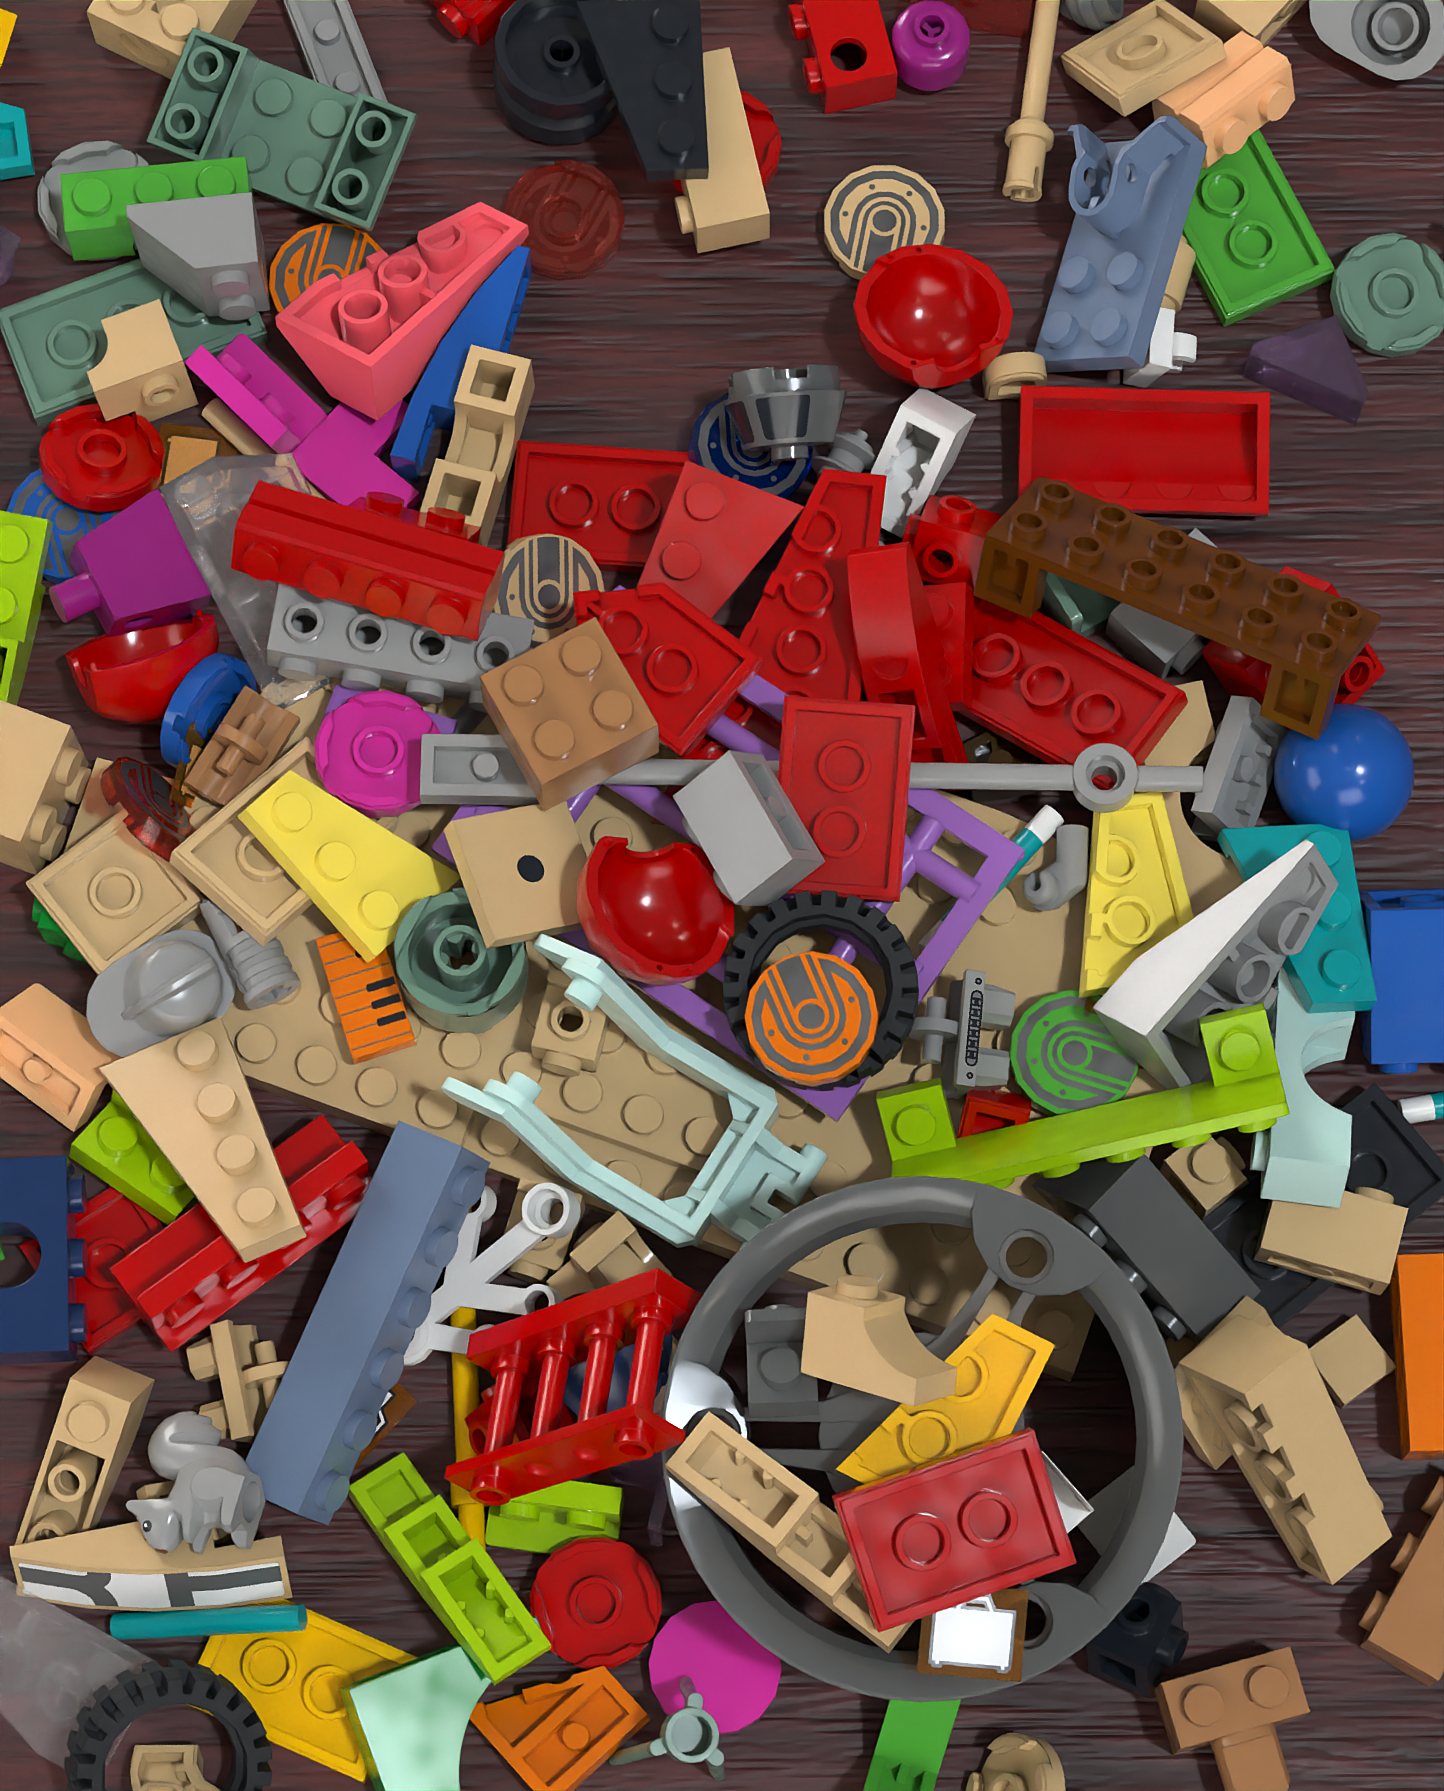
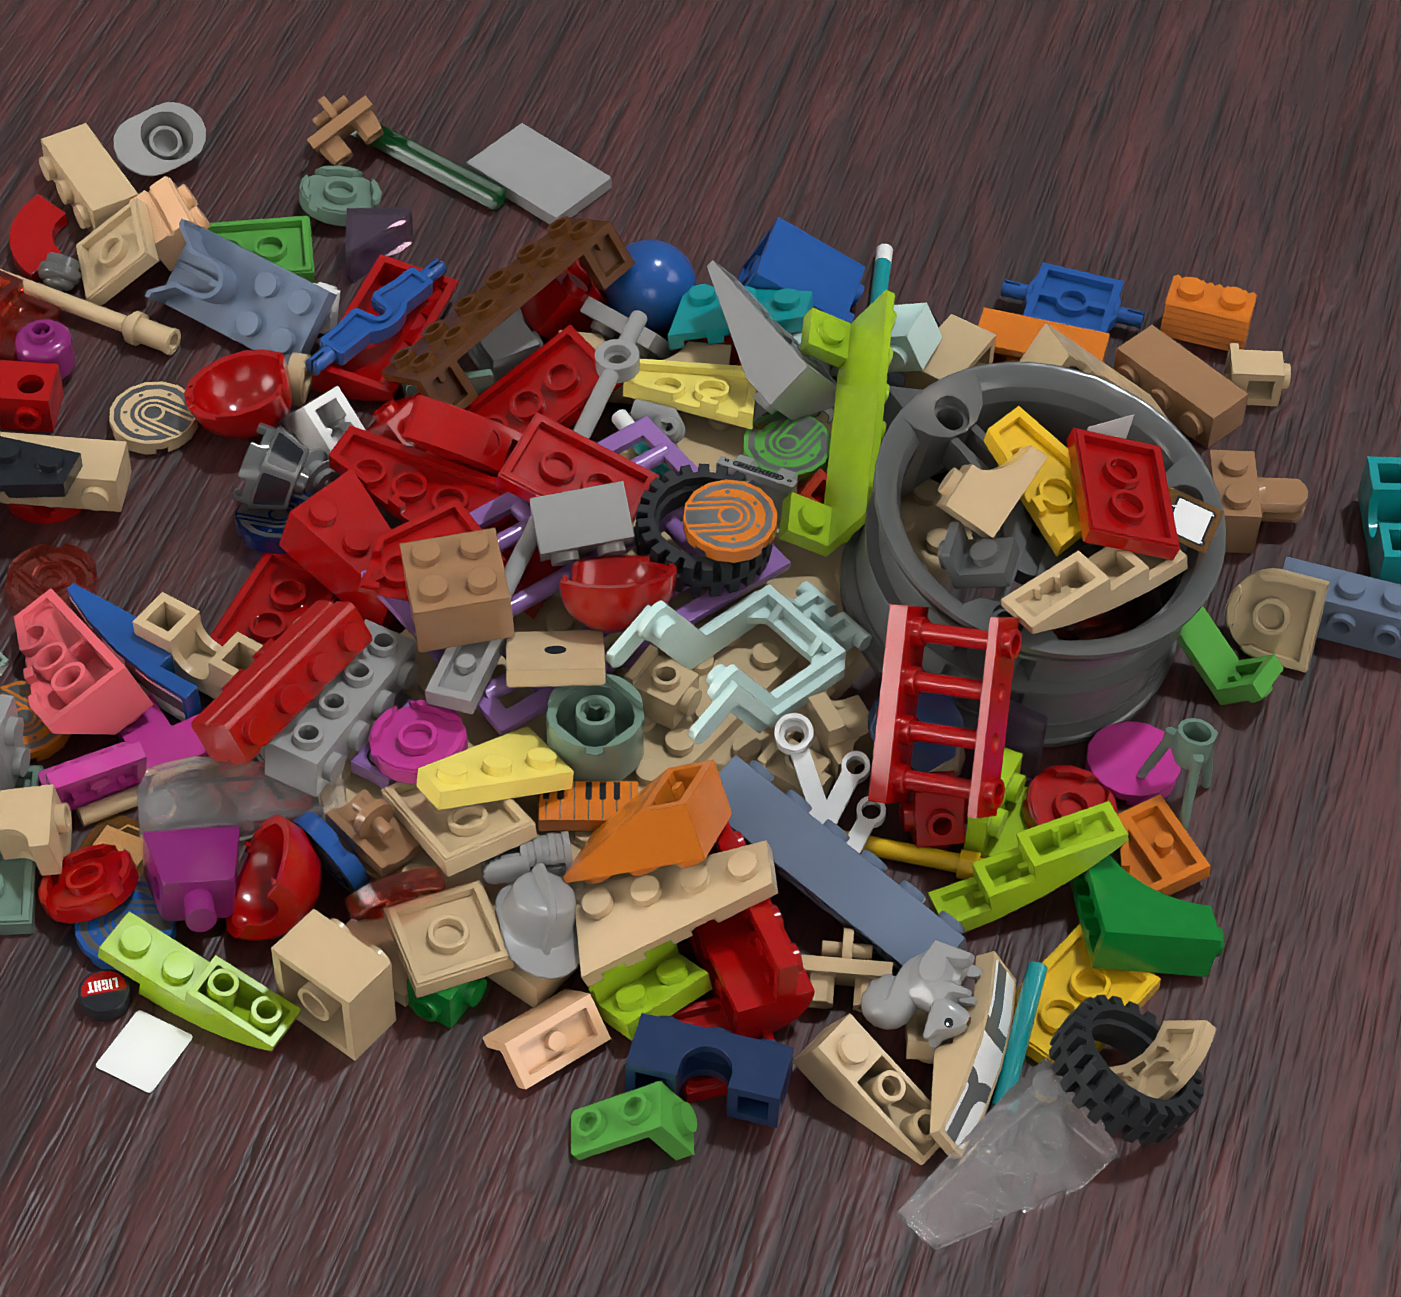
camera: 75 degrees left, 25 degrees down
(290, 1085) = (661, 826): none -> orange slope
(1173, 445) = (362, 328): none -> blue piece

